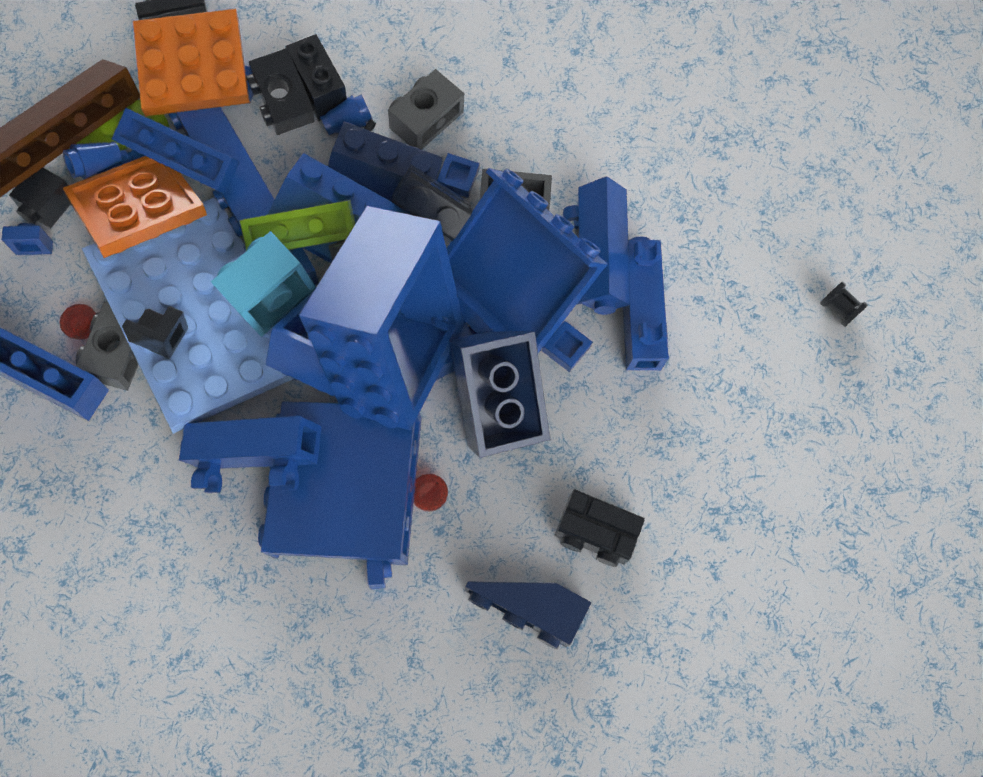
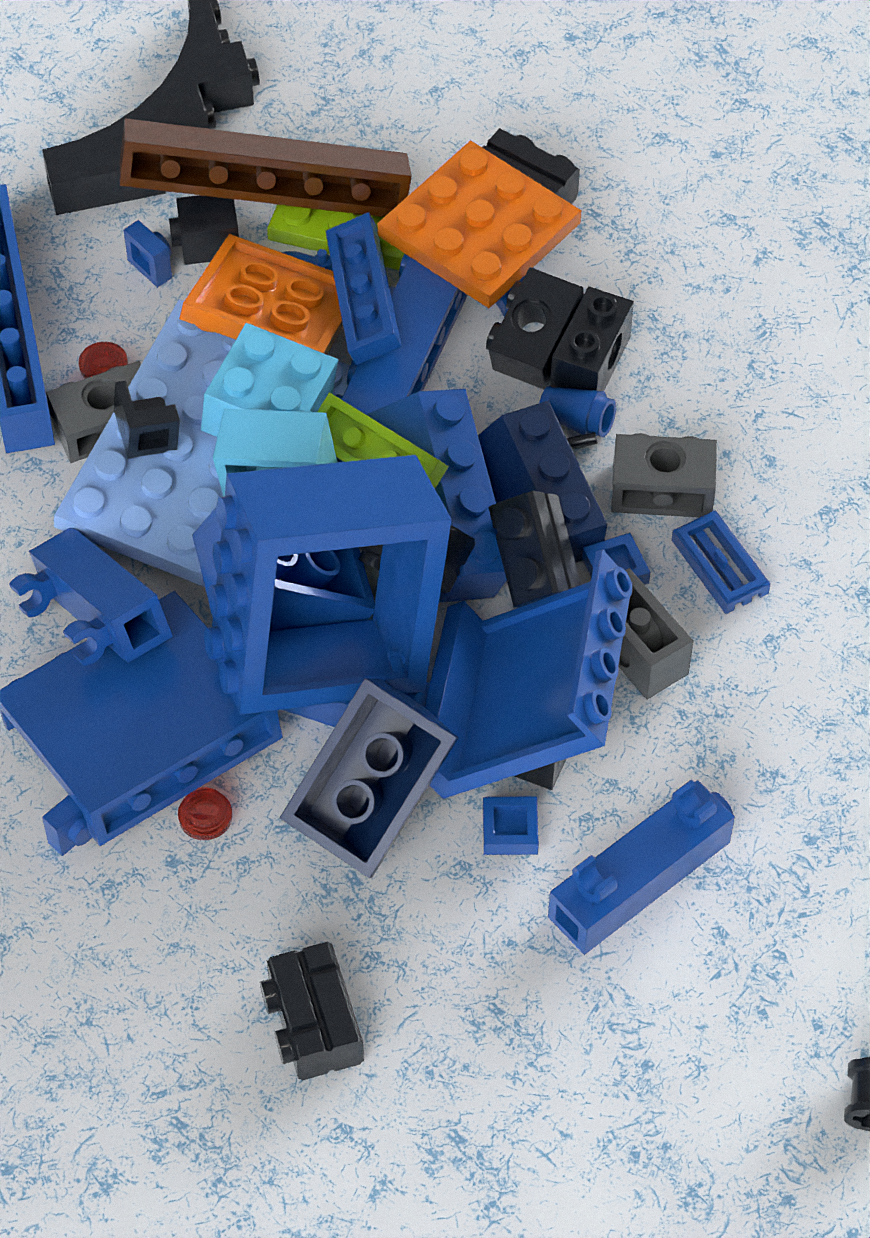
camera: 60 degrees right, 15 degrees down
(91, 158) = (286, 231): blue cone -> none
(197, 247) = (267, 375): none -> medium azure brick
(493, 133) = (723, 596): none -> blue tile
(541, 606) = (168, 1012): dark blue slope -> none
(604, 222) = (647, 770): blue brick -> none

